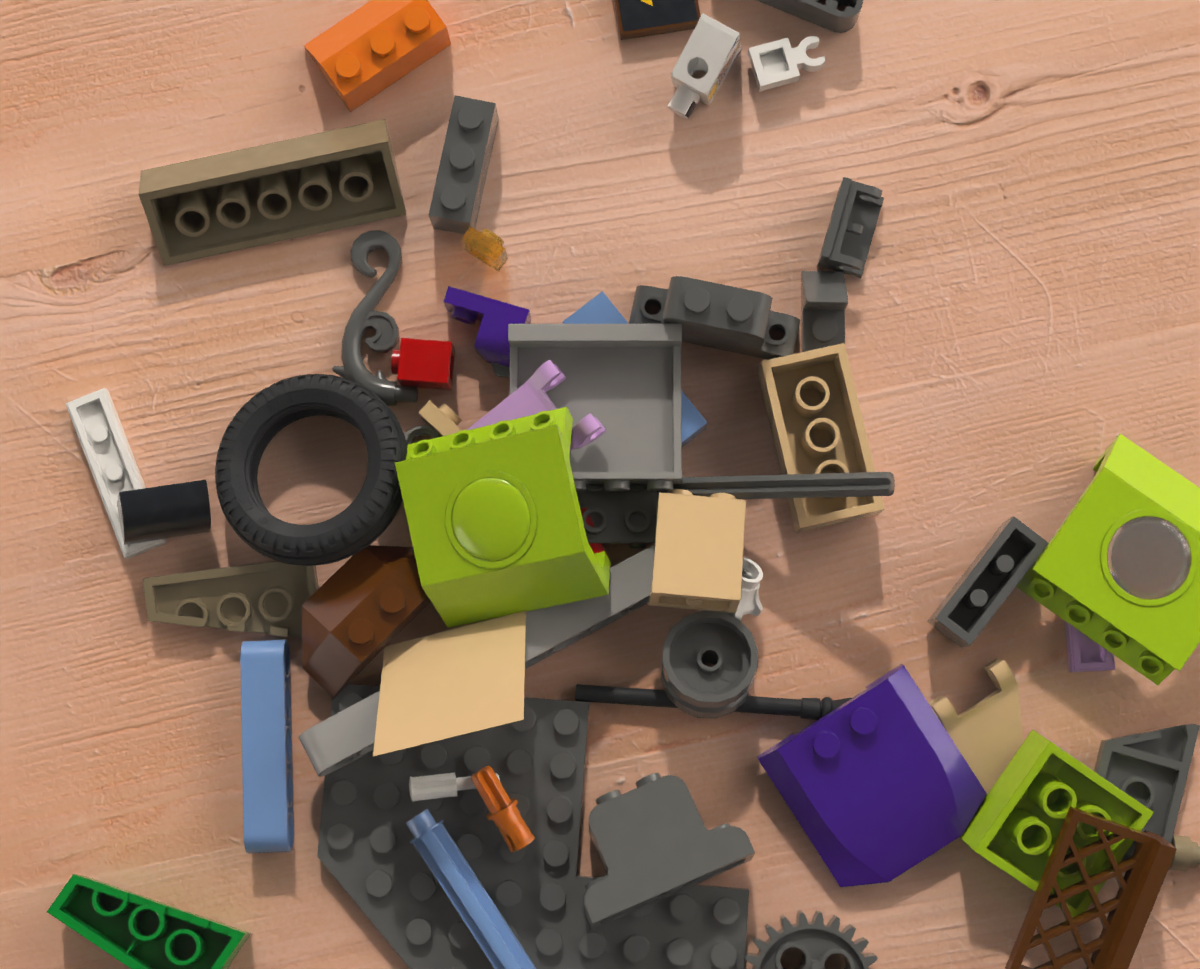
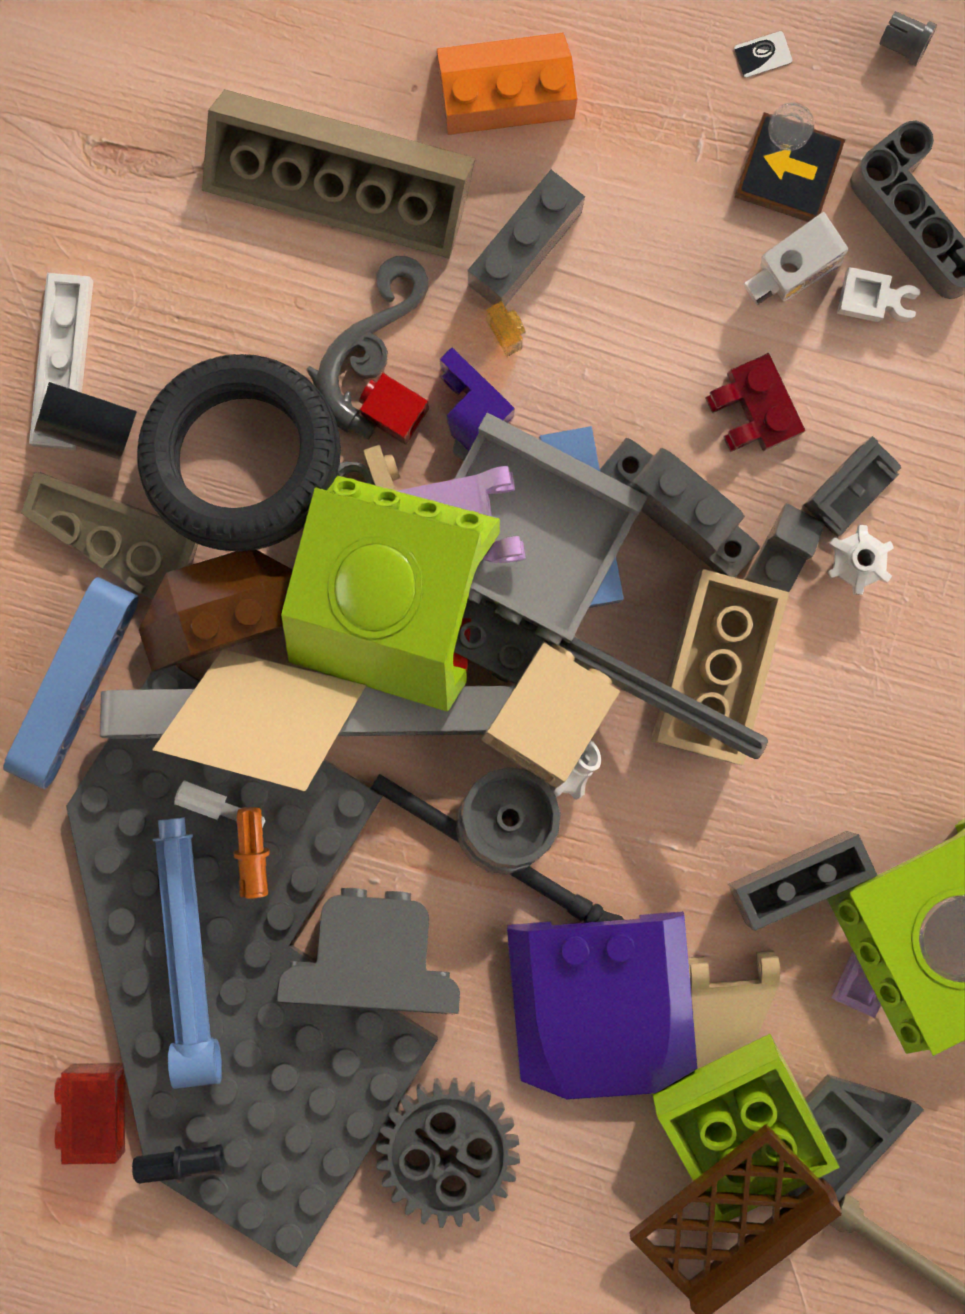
camera: 20 degrees right, 5 degrees up
(737, 196) = (764, 402): none -> dark red plate
(901, 279) = (874, 560): none -> white rock

